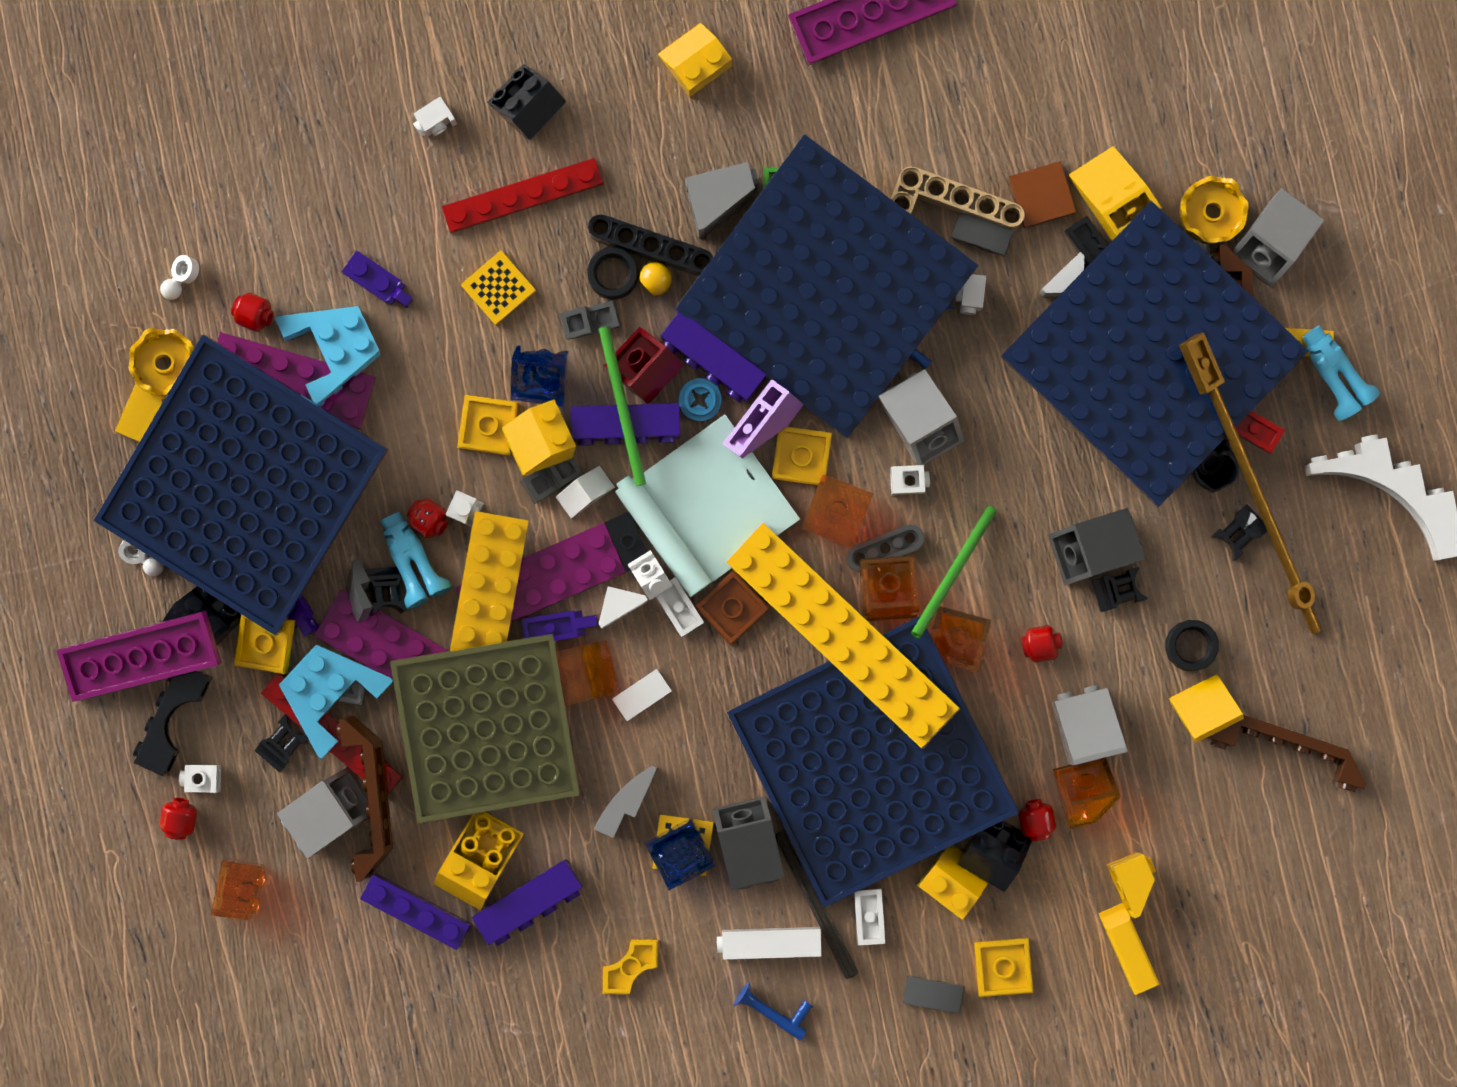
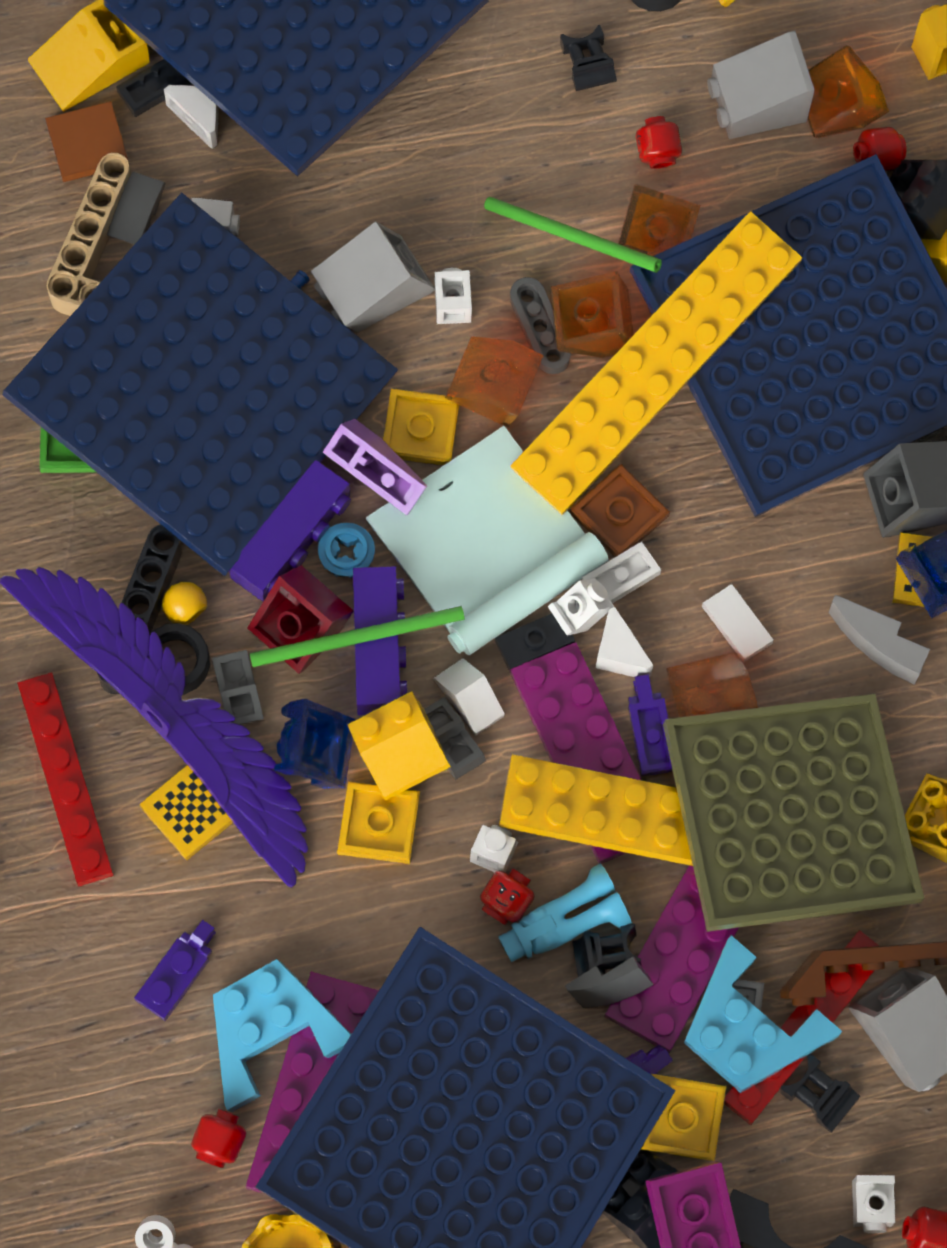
camera: 90 degrees left, 15 degrees down
(589, 253) = (196, 728): none -> dark purple piece
(719, 195) = (78, 518): light grey slope -> none
(1096, 546) = (536, 80): dark grey slope -> none

